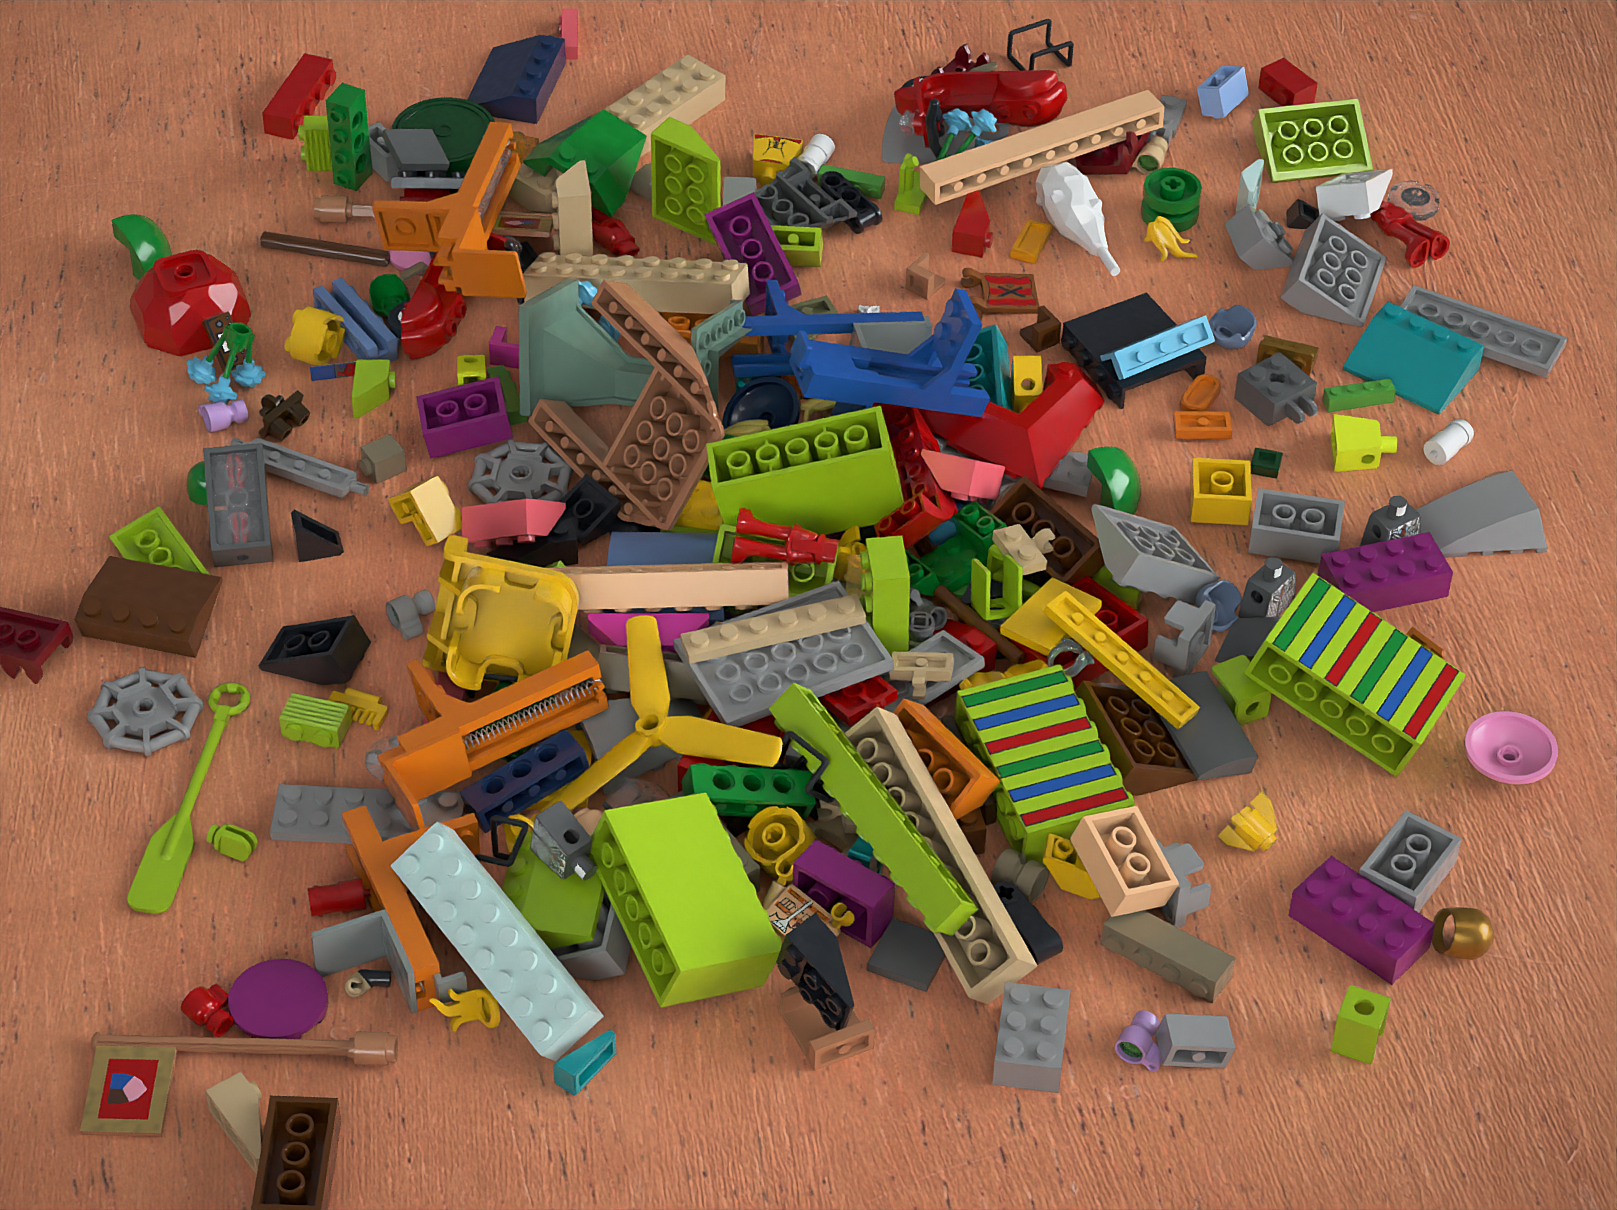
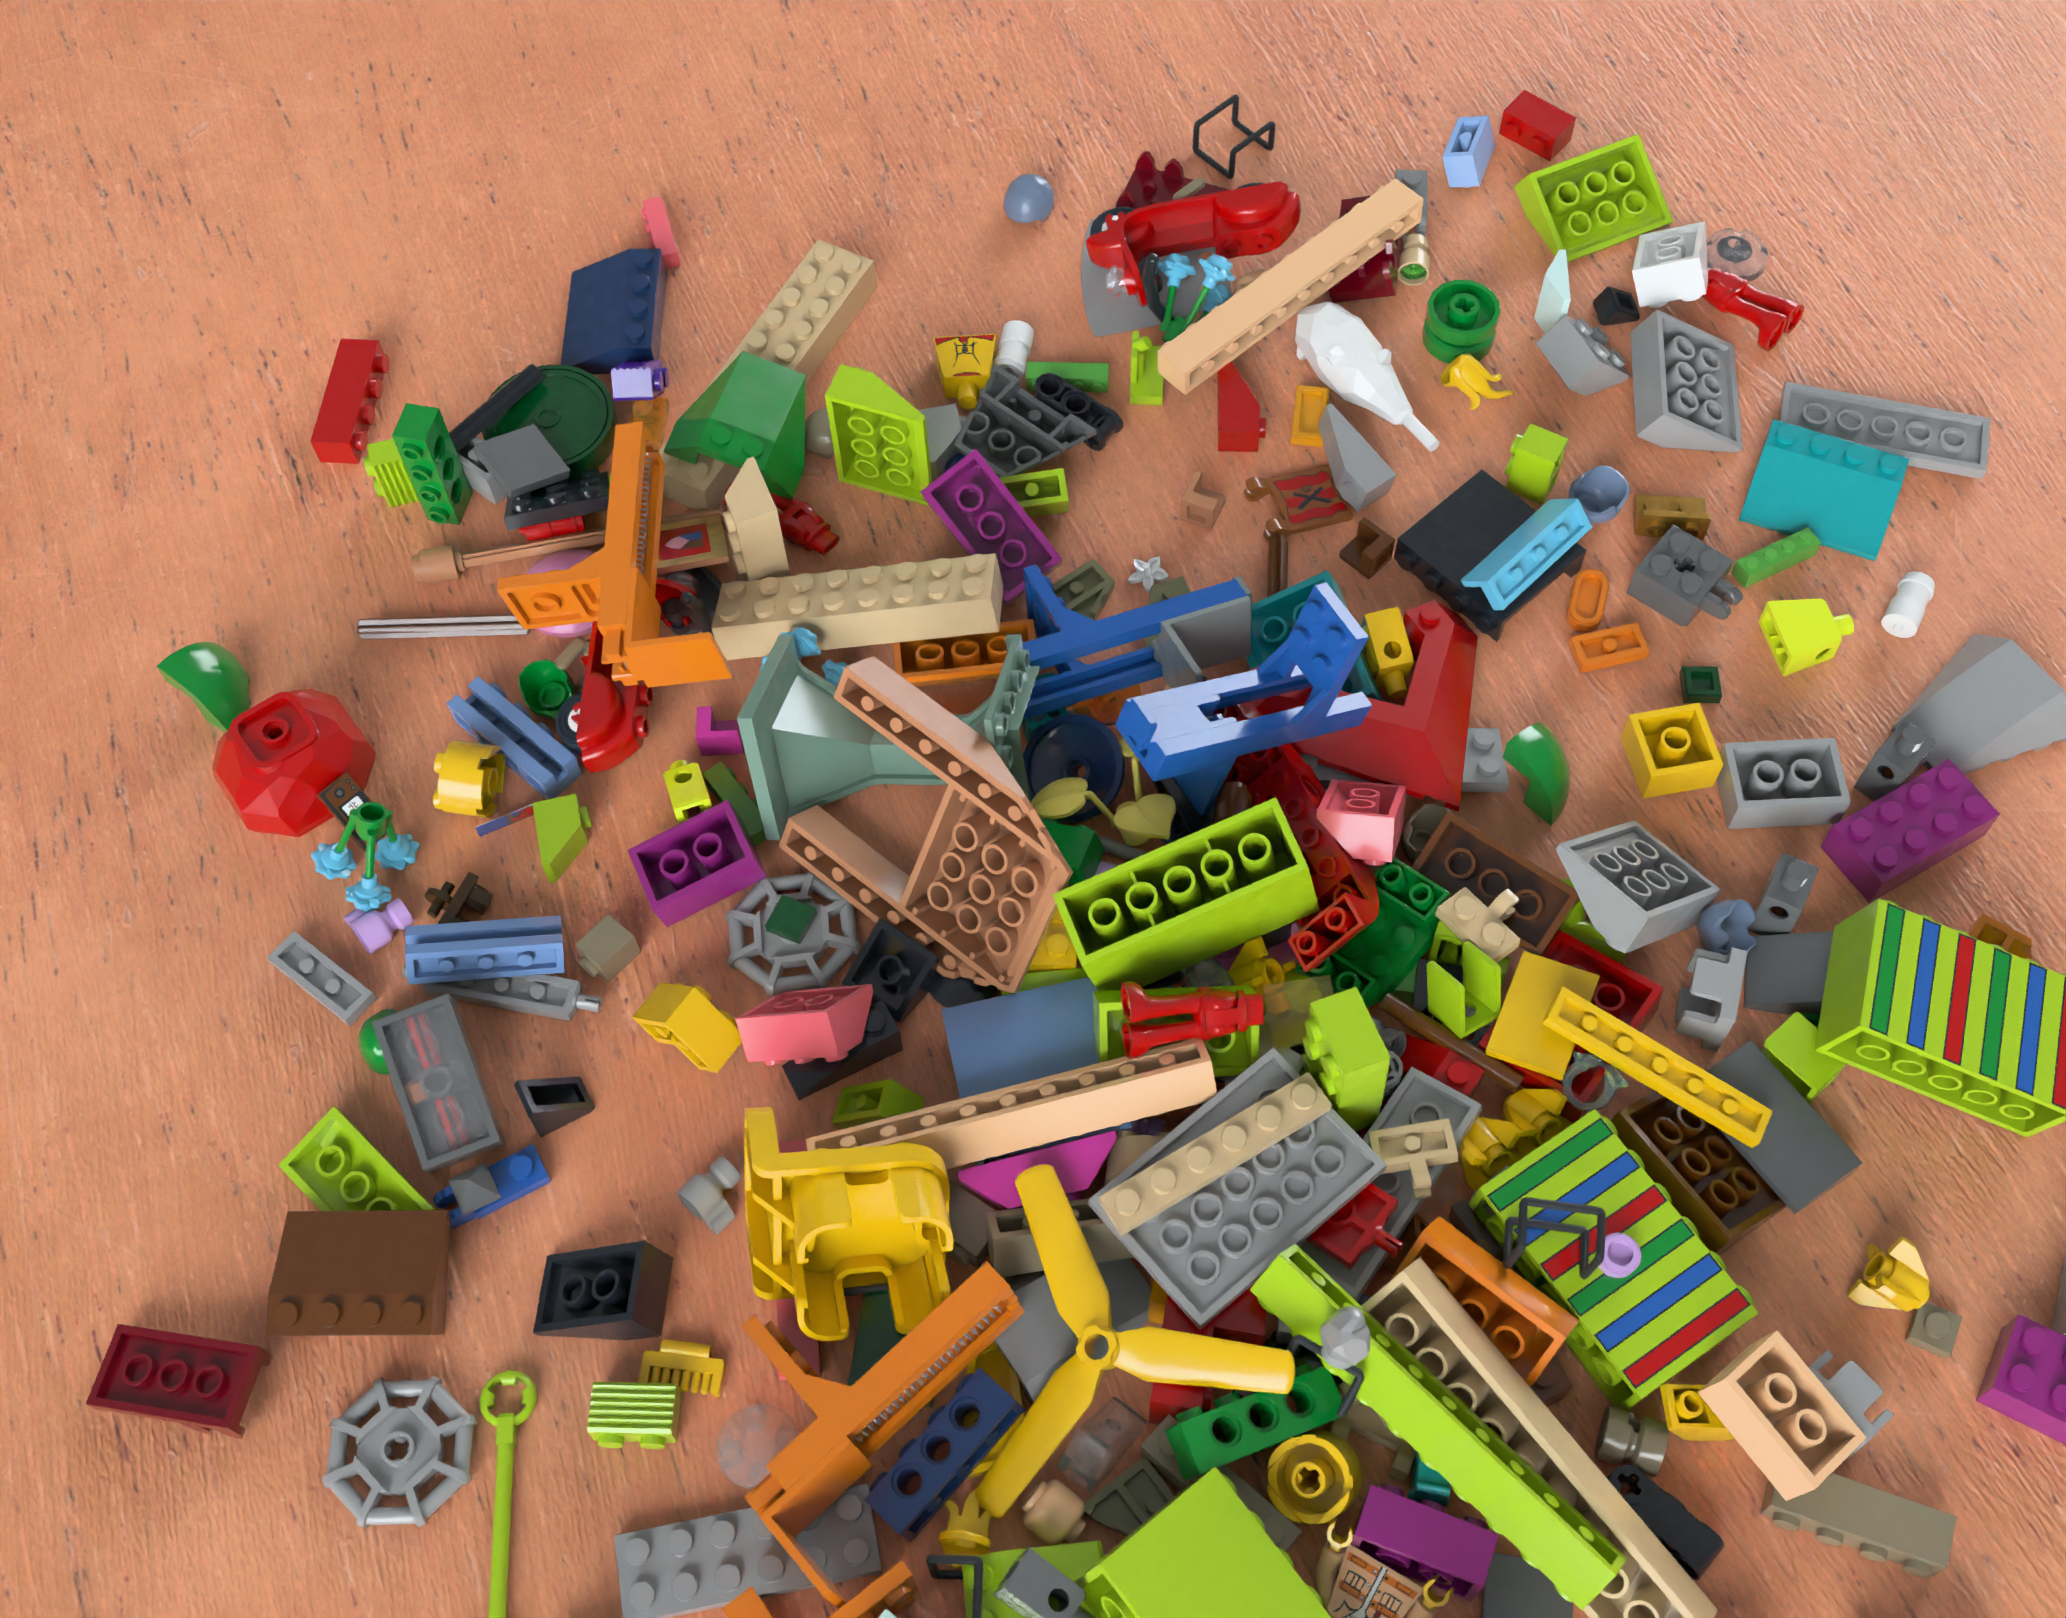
camera: 10 degrees left, 15 degrees up
(171, 437) = (321, 978): none -> light grey plate
(243, 572) = (474, 1189): none -> dark grey slope
(257, 581) = (513, 1177): none -> blue hinge
(295, 436) = (484, 949): none -> medium blue brick
(407, 112) = (495, 406): none -> black axle
(521, 464) = (791, 919): none -> dark green tile
(522, 118) = (639, 380): none -> brick
(820, 730) = (1345, 1338): none -> light grey rock
(863, 61) = (1029, 199): none -> sand blue hair
(1018, 730) = (1523, 1222): none -> black piece
(1041, 747) = (1621, 1255): none -> lavender tile
(1052, 277) = (1354, 464): none -> light grey slope
(1190, 294) = (1535, 463): none -> lime brick
(1273, 867) = (1934, 1329): none -> dark tan plate

